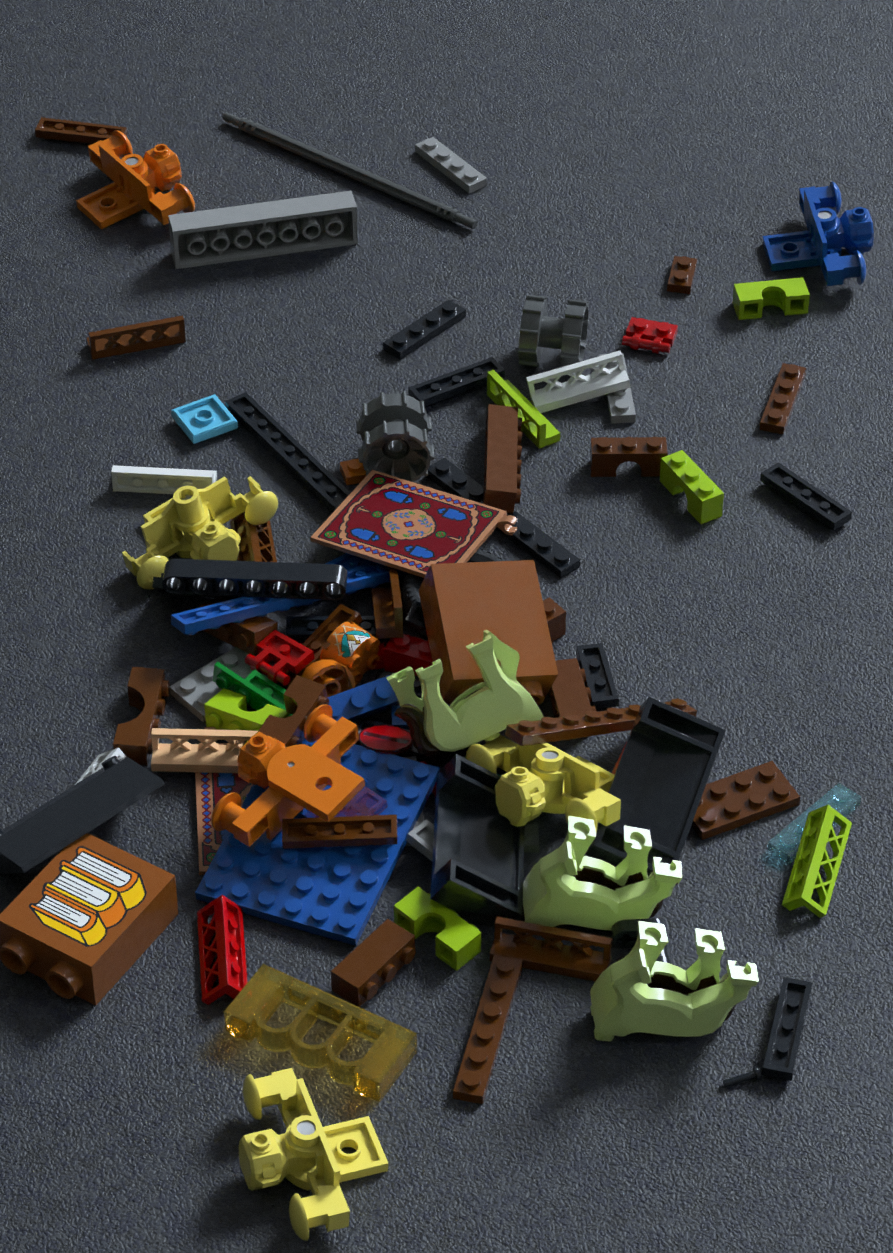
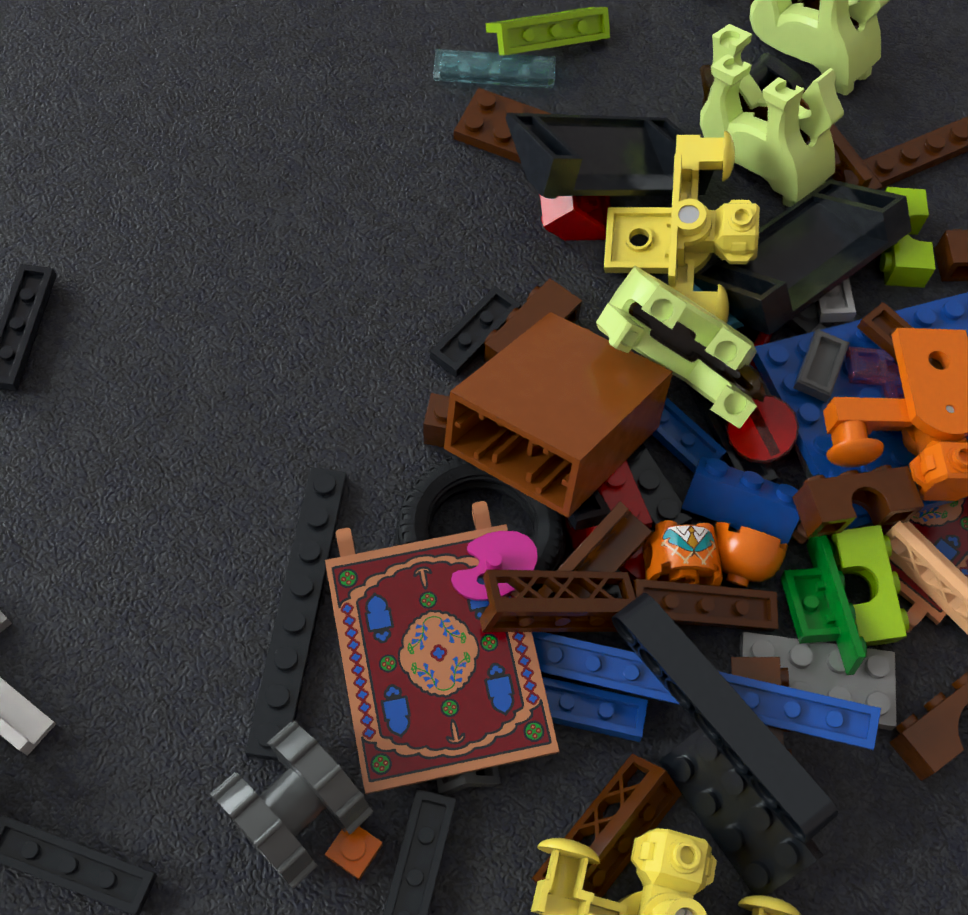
camera: 135 degrees left, 20 degrees up
(284, 652) = (755, 620): red plate -> none
(376, 564) = (555, 613): none -> reddish brown fence
(390, 780) = (821, 365): none -> dark grey tile
(418, 565) = (495, 552): none -> dark pink piece
(502, 458) = (204, 667): reddish brown brick -> none
(534, 424) = (72, 735): lime fence -> none
(581, 725) = (577, 241): reddish brown plate -> none
(609, 453) = (86, 535): reddish brown arch -> none
(703, 496) = (79, 454): lime arch -> none

